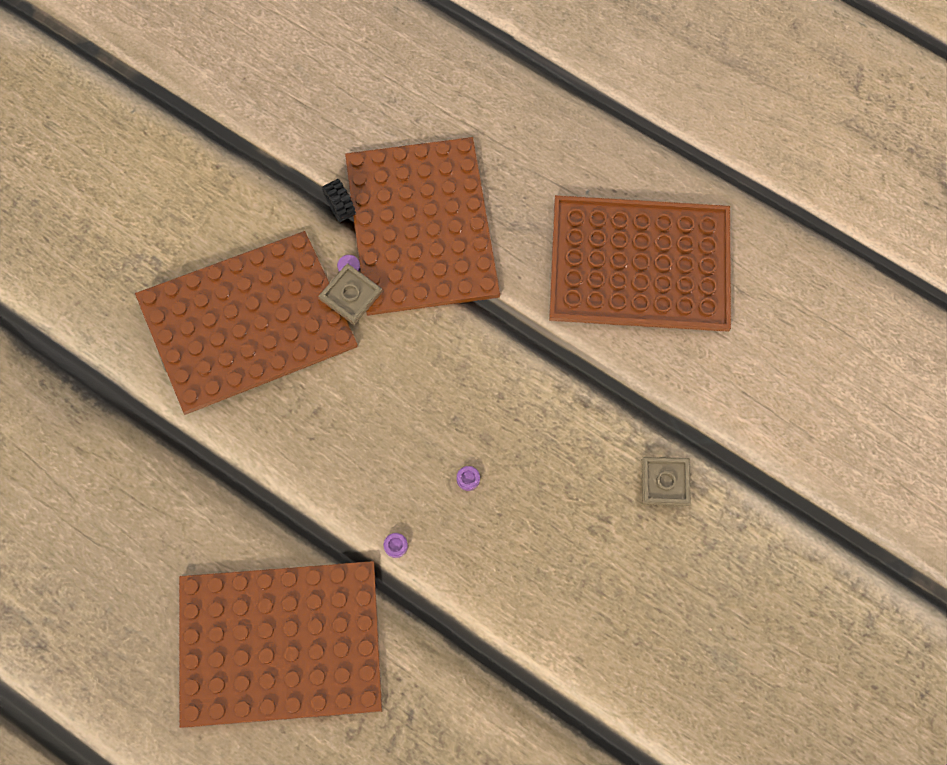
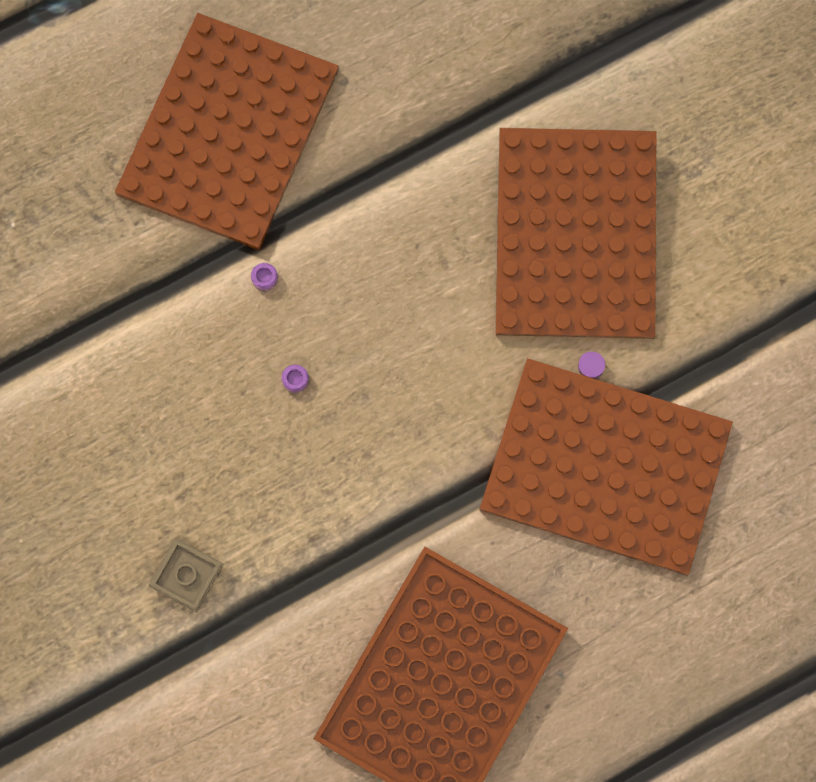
camera: 120 degrees right, 5 degrees up
(338, 200) = (671, 383): black tyre -> none
(350, 294) = (552, 347): dark tan plate -> none

